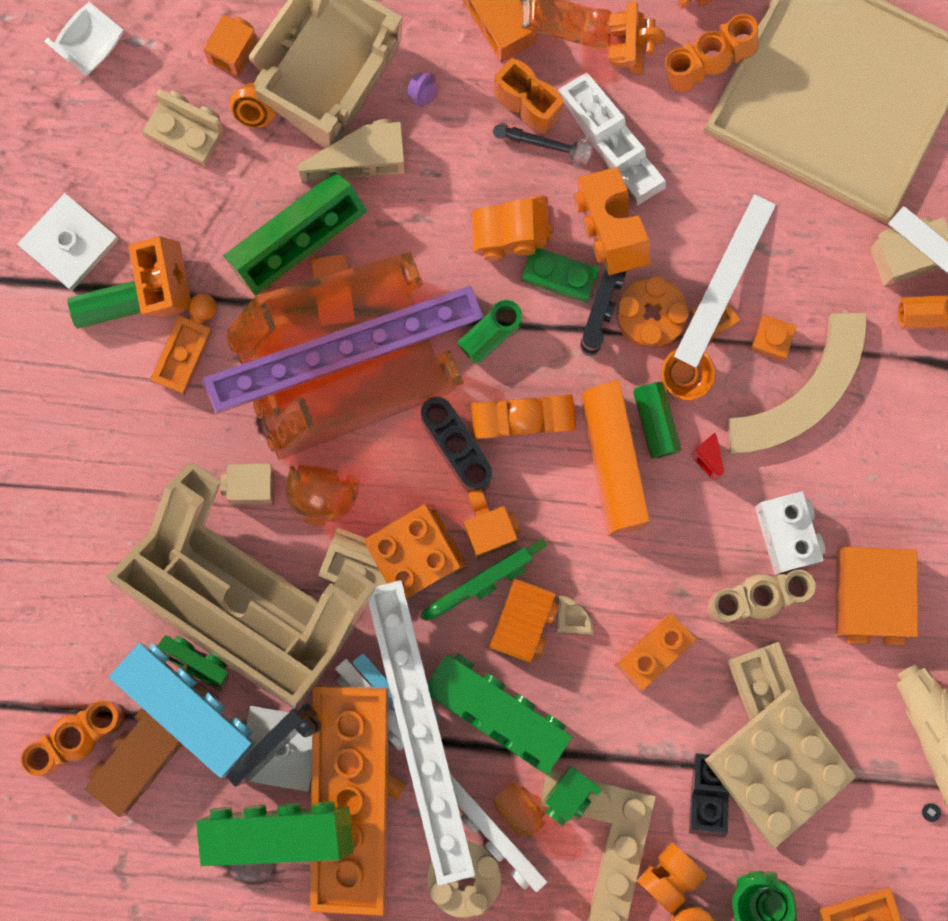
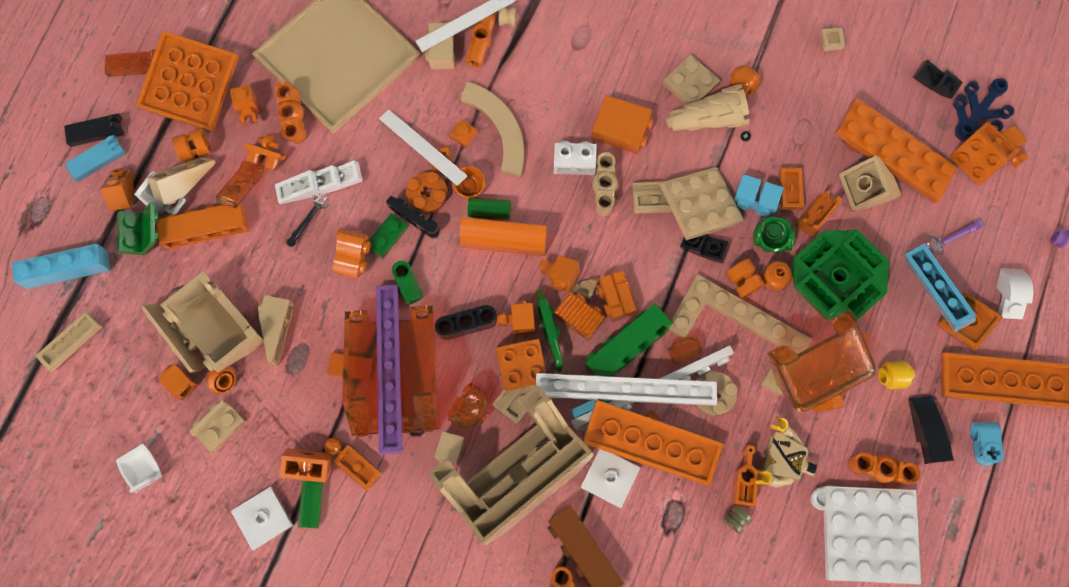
camera: 65 degrees left, 5 degrees down
(182, 709) = (573, 524): medium azure brick -> none
(207, 669) = (551, 507): green plate -> none
(275, 835) = (661, 492): green brick -> none
(295, 233) = (308, 376): green brick -> none
(296, 721) = (600, 454): black hinge -> none
(422, 88) = (248, 278): medium lavender plate -> none
(522, 93) = (273, 221): orange brick -> none
(523, 416) = (462, 279): orange piece -> none
(569, 796) = (685, 317): green brick -> none
(574, 673) = (617, 296): none -> orange brick
(583, 572) = (561, 273): none -> orange brick
(618, 240) = (354, 197): orange arch -> none
(655, 652) = (618, 248): orange brick -> none
(709, 457) = (519, 186): red slope -> none
(821, 880) = (767, 200): none -> medium azure piece

